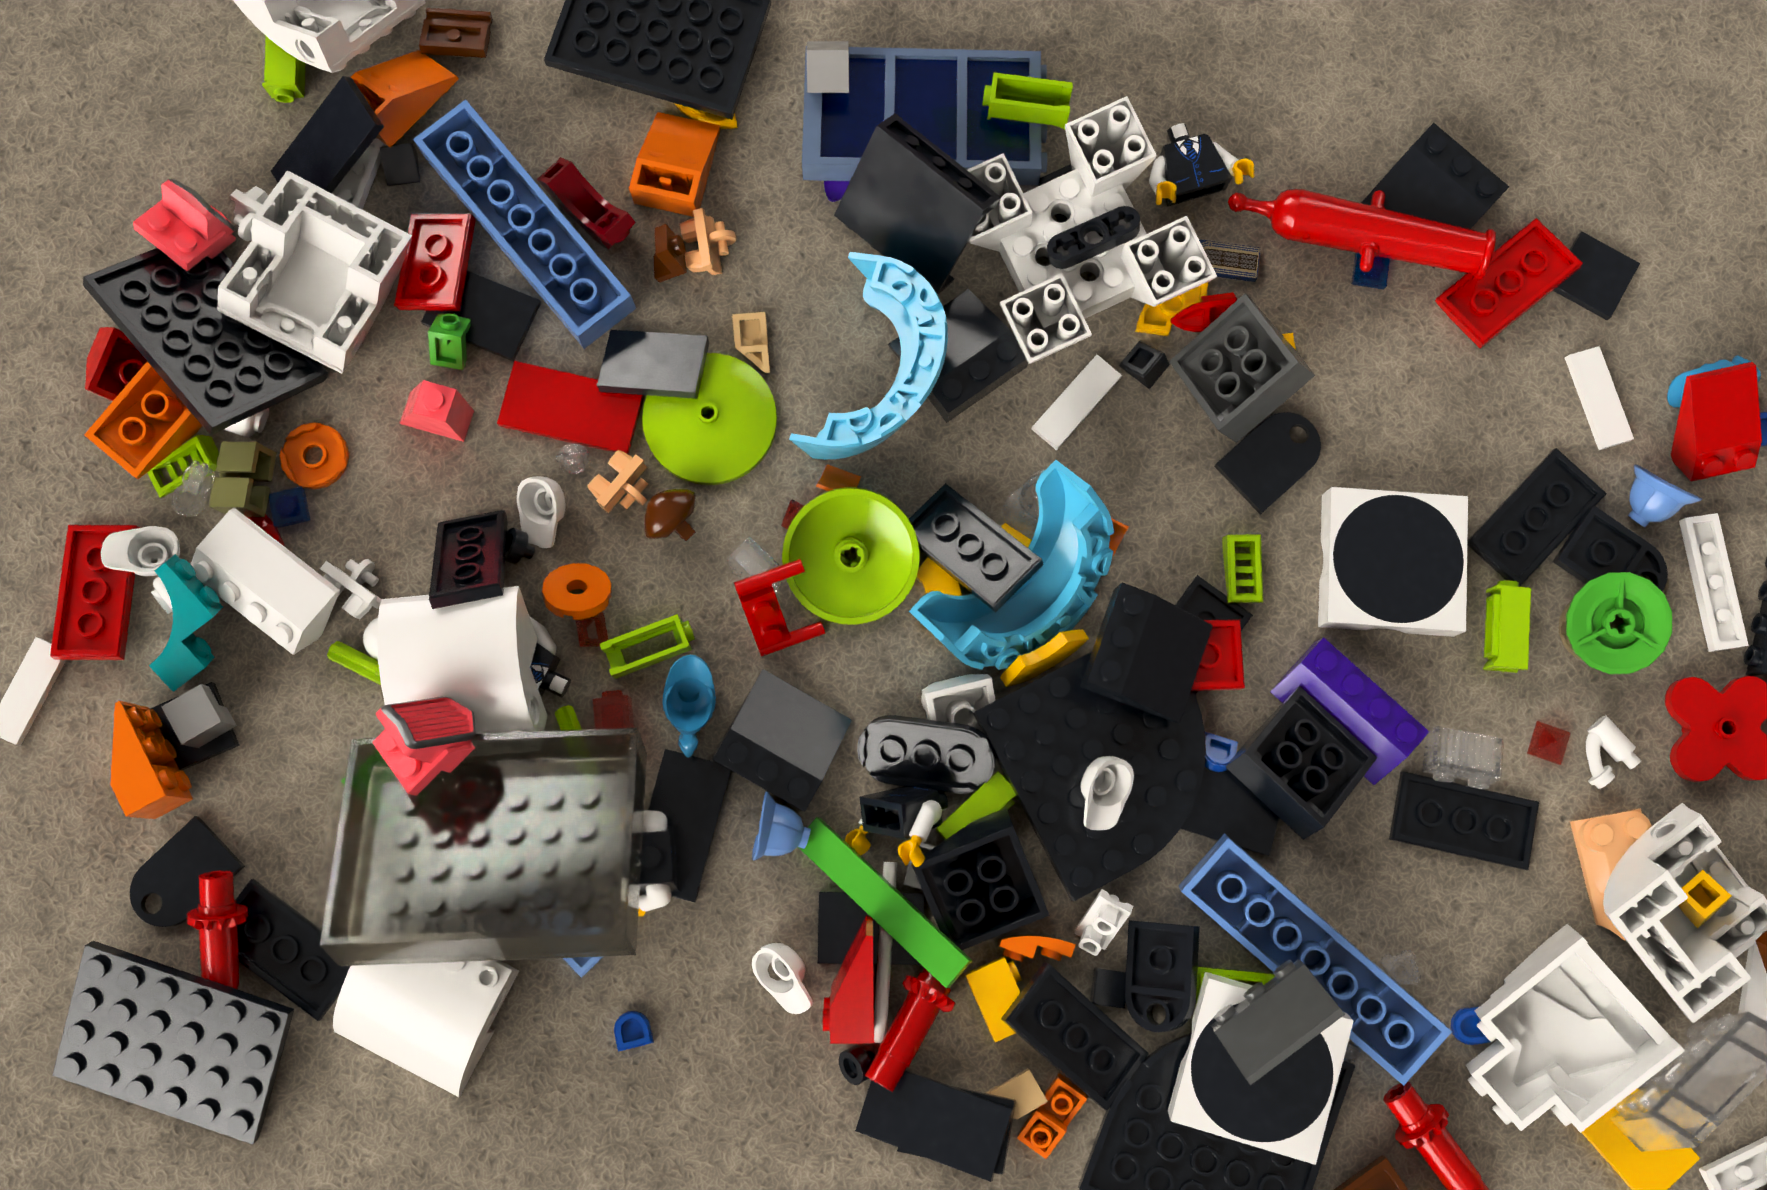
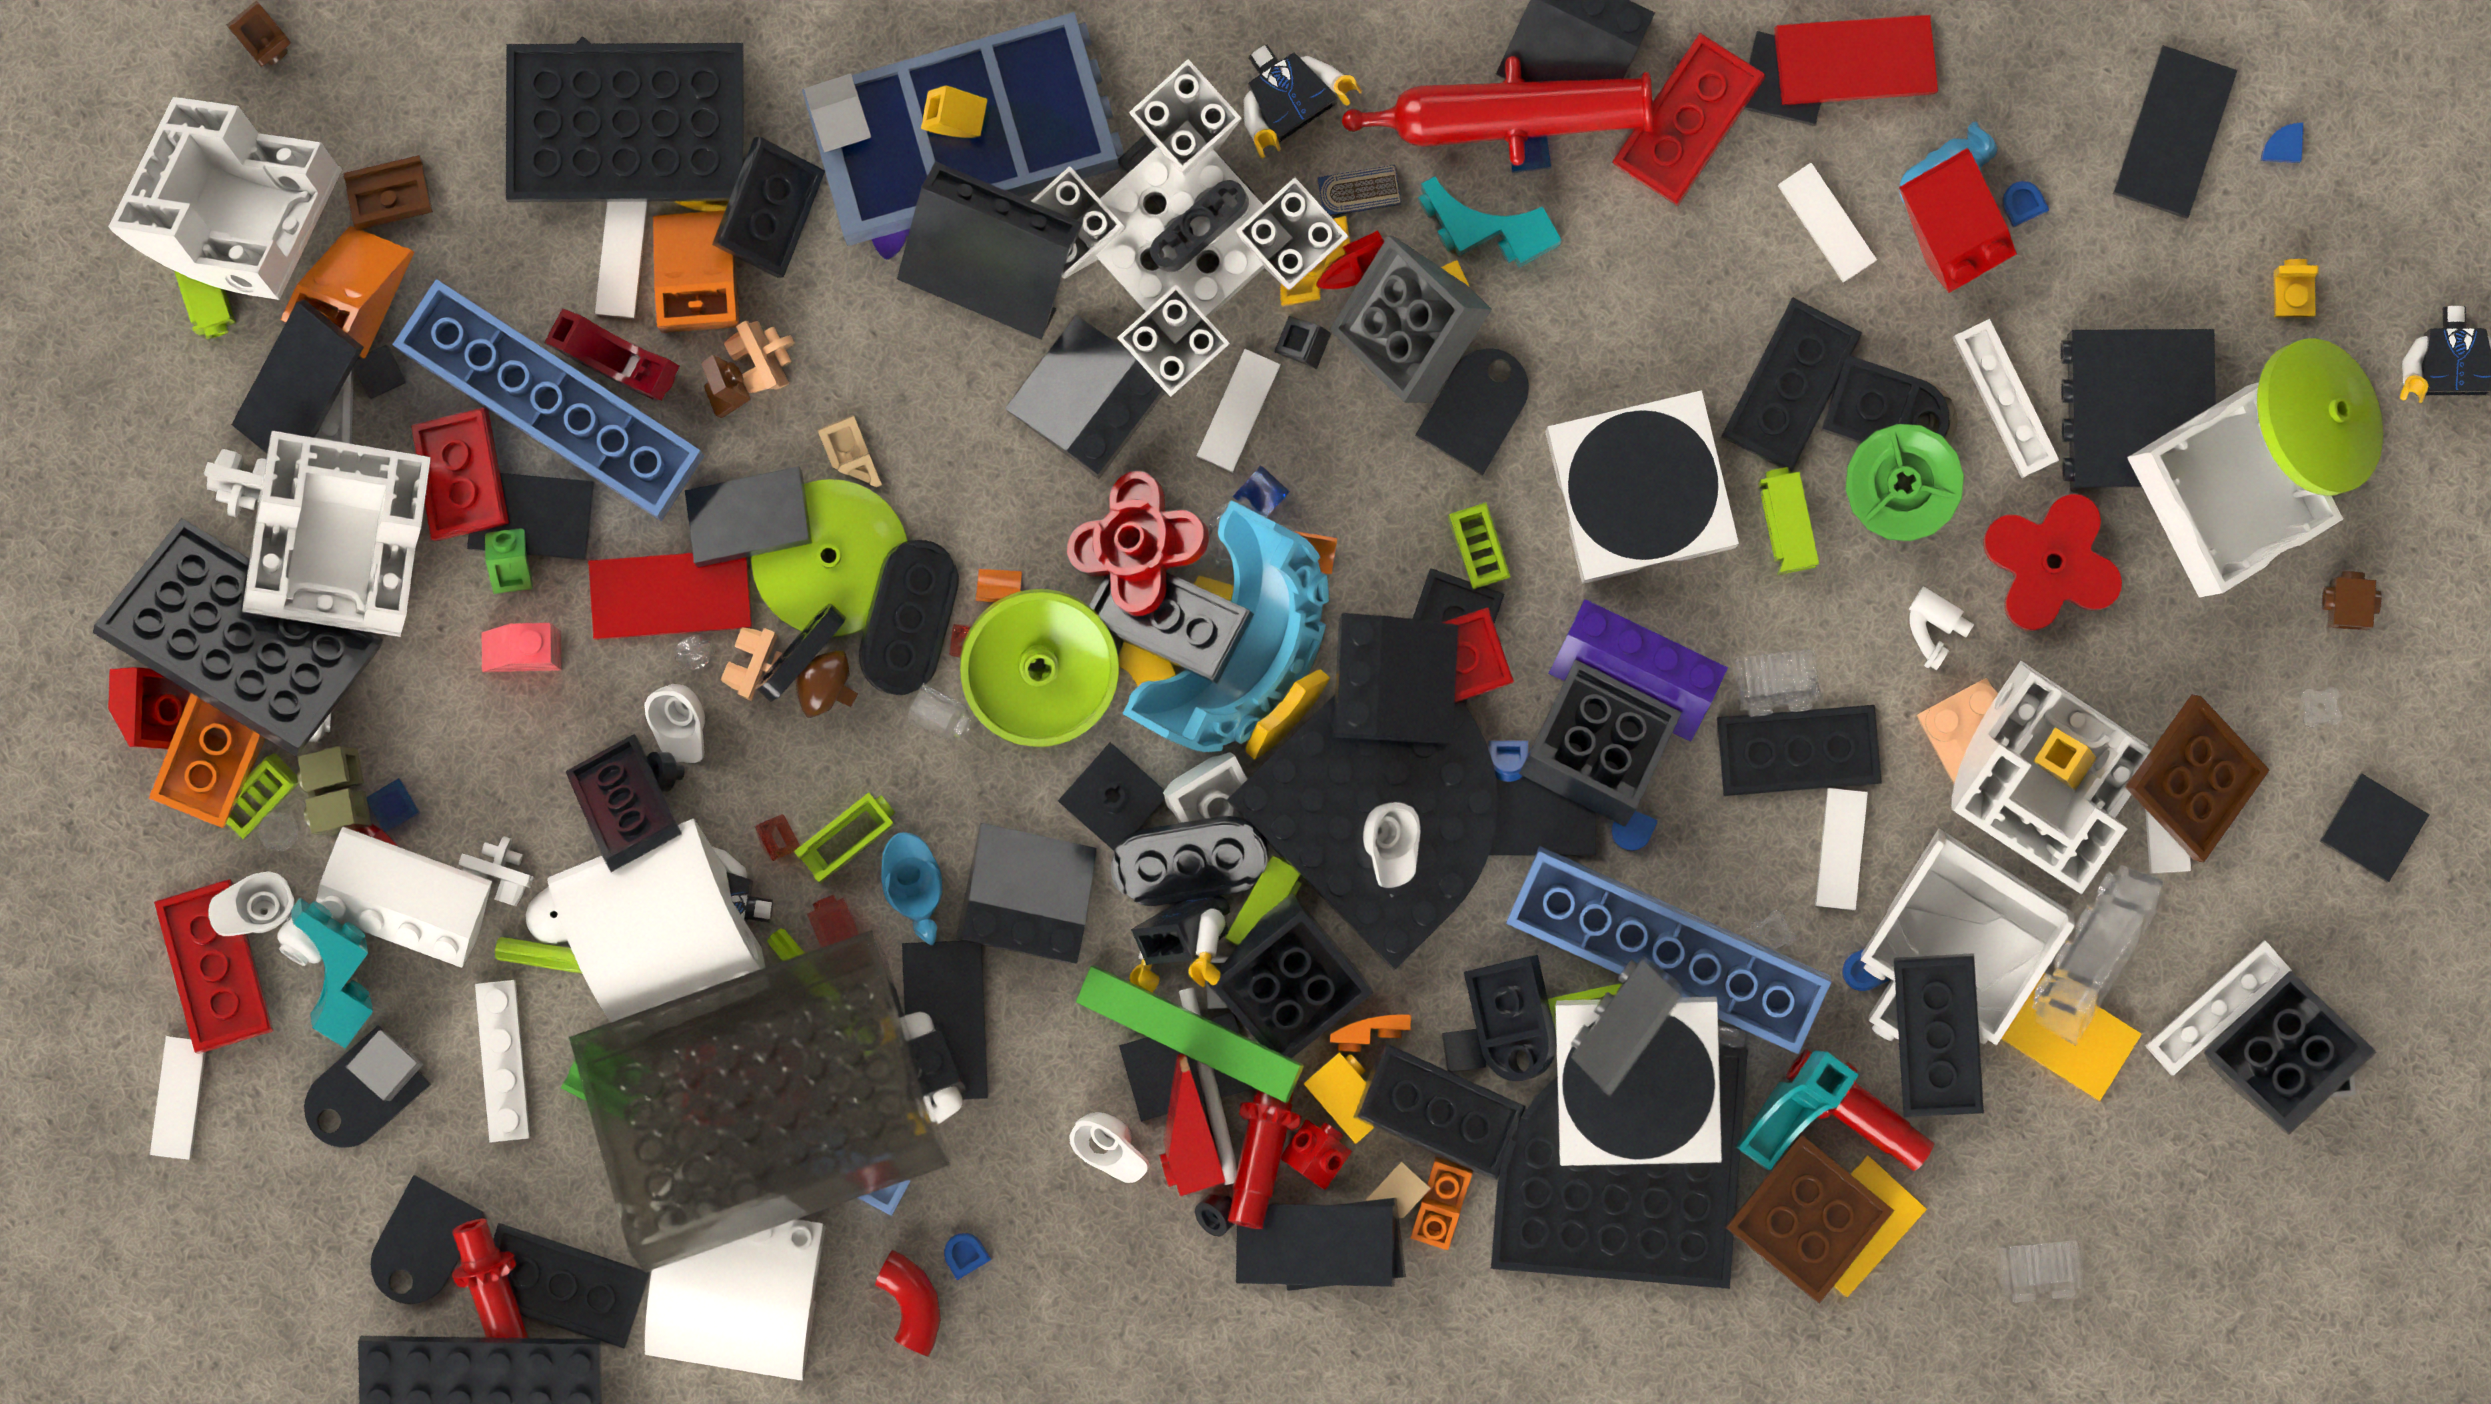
camera: 15 degrees left, 5 degrees up
(144, 765) = (352, 1142): orange slope -> none
(185, 226) = (170, 527): coral piece -> none
(197, 478) = (286, 806): clear plate -> none
(303, 744) = (502, 1061): none -> white plate
(324, 472) = (416, 755): orange tile -> none
(424, 739) = (653, 1012): coral piece -> none
(576, 576) = (744, 783): orange tile -> none
(577, 1058) = (916, 1300): none -> red cylinder
(621, 137) = (621, 259): none -> white tile
(658, 482) = (800, 652): none -> black beam
(749, 128) = (768, 207): none -> black tile
(756, 484) = (908, 617): none -> black tile
(765, 612) = (966, 762): red plate -> none
(779, 830) = (1055, 993): medium blue hat -> none
(878, 681) = (1113, 796): none -> black tile
(921, 94) = (954, 112): none -> yellow brick
(923, 335) = (1050, 431): medium azure windscreen -> none
(959, 1039) = (1320, 1157): none -> red brick
(963, 480) = (1137, 543): none -> plant
(1028, 99) = (1078, 70): lime window -> none
(1081, 466) = (1263, 491): none -> clear blue plate
(1101, 922) = (1433, 983): white hips -> none
(1304, 313) = (1463, 229): none -> teal arch
(1306, 849) = (1636, 833): none -> blue tile
(1379, 1131) = (1794, 1106): none -> teal arch
(1478, 915) = (1841, 849): none -> white tile
(1532, 1108) = (1938, 1035): none -> black tile
(1548, 743) = (1870, 635): clear red slope -> none
(1655, 498) = (1916, 320): medium blue hat -> none
(1657, 276) = (1856, 59): none -> red tile

